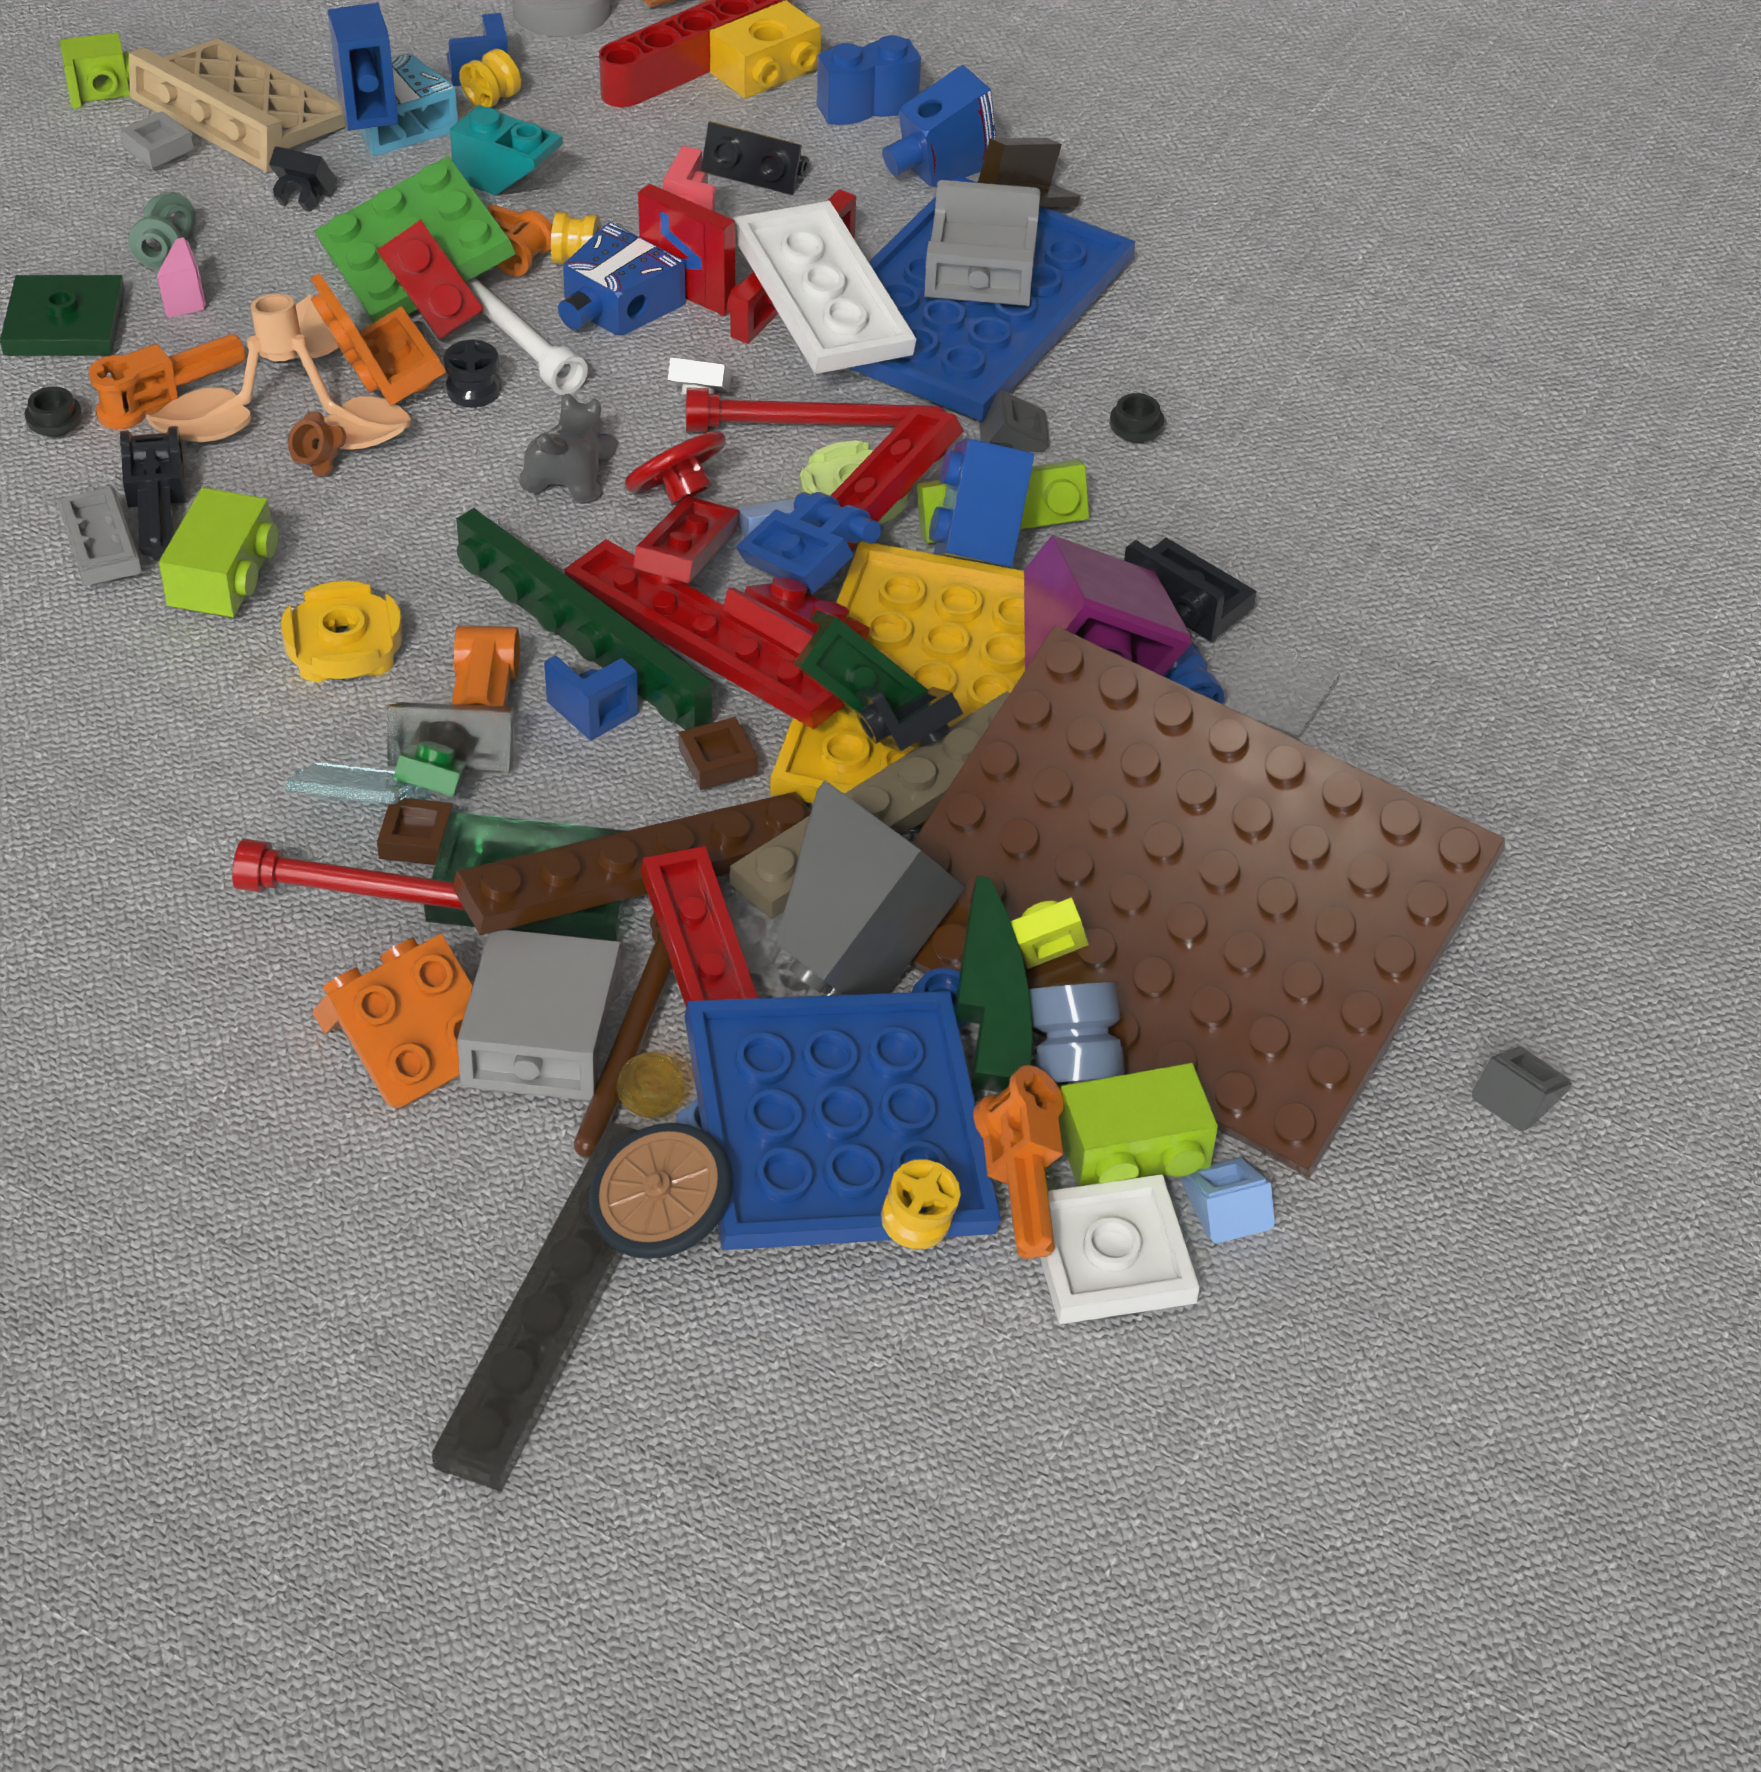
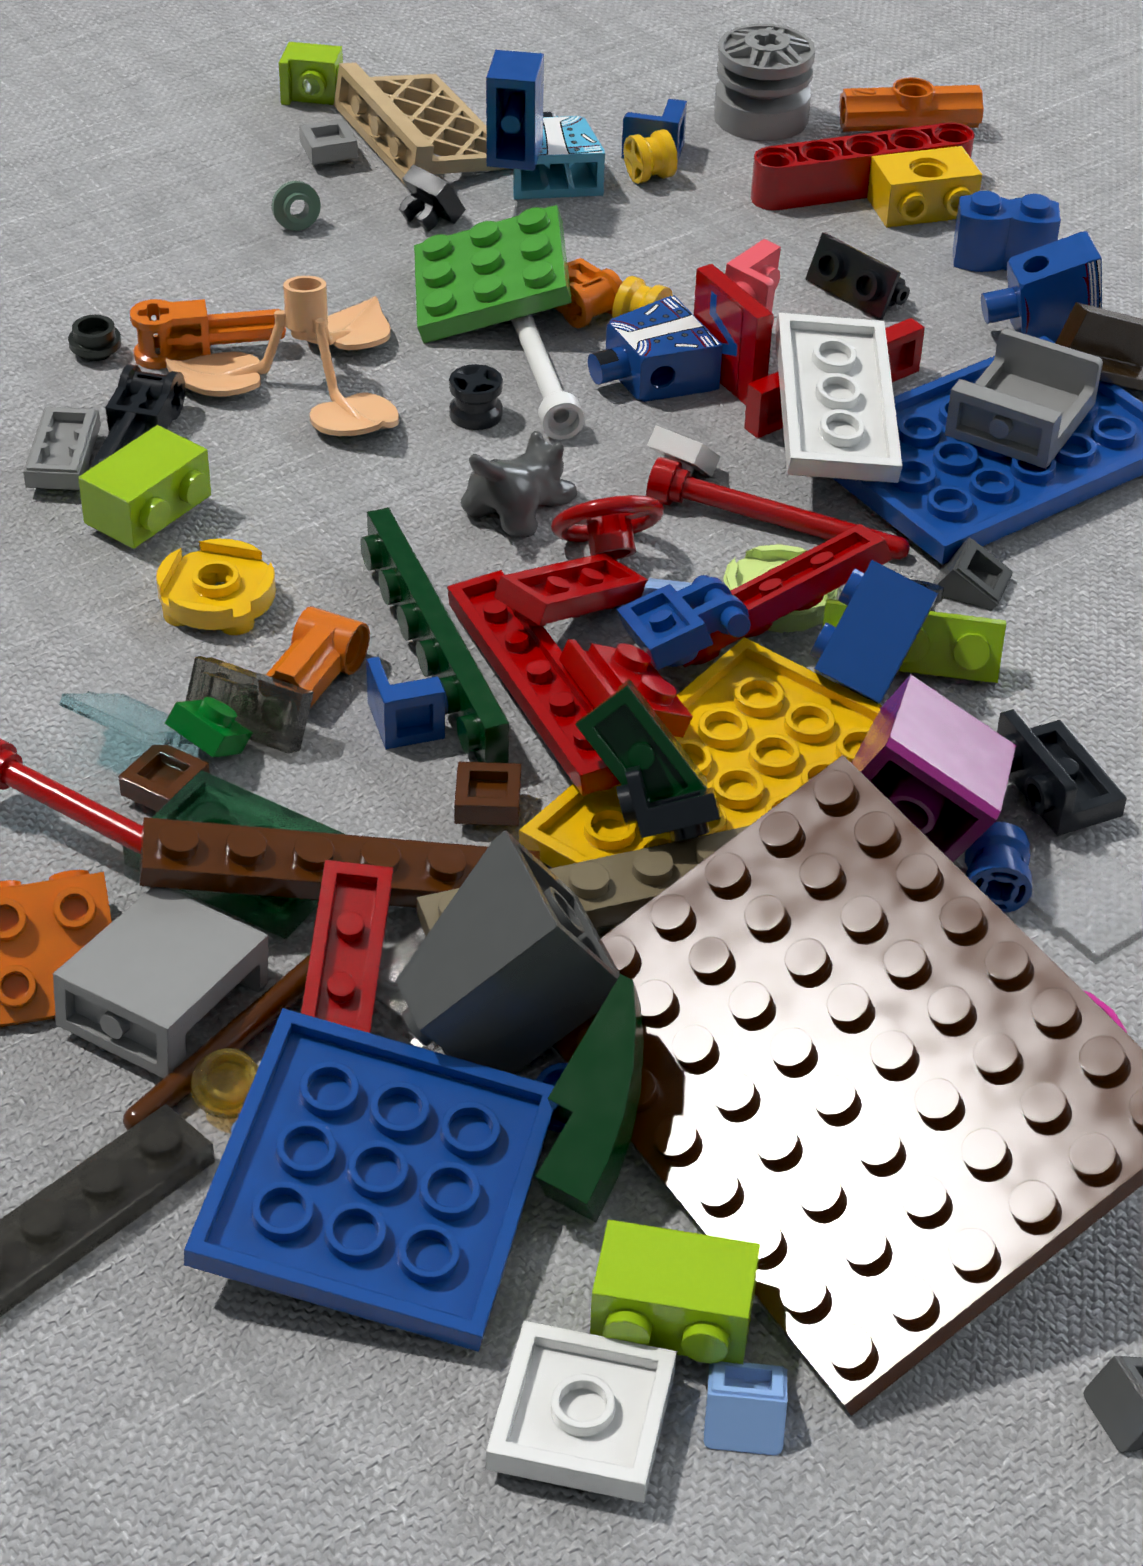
camera: 25 degrees right, 5 degrees down
(62, 315) = (158, 263): dark green plate -> none
(156, 228) = (281, 219): sand green plate -> none
(180, 281) = (269, 257): bright pink slope -> none
(304, 443) = (297, 419): dark orange plate -> none
(384, 354) = (401, 366): orange bracket -> none
(430, 280) = (478, 306): red plate -> none
(498, 148) = (615, 213): teal slope -> none
(660, 1190) = (152, 1184): medium nougat wheel -> none
(912, 1188) = (392, 1267): yellow wheel -> none
(1019, 1143) = (540, 1265): orange connector -> none
(1049, 931) = (681, 1059): neon yellow plate -> none
(1078, 1031) = (659, 1171): sand blue wheel -> none
(1137, 418) = (1101, 601): pearl dark grey plate -> none

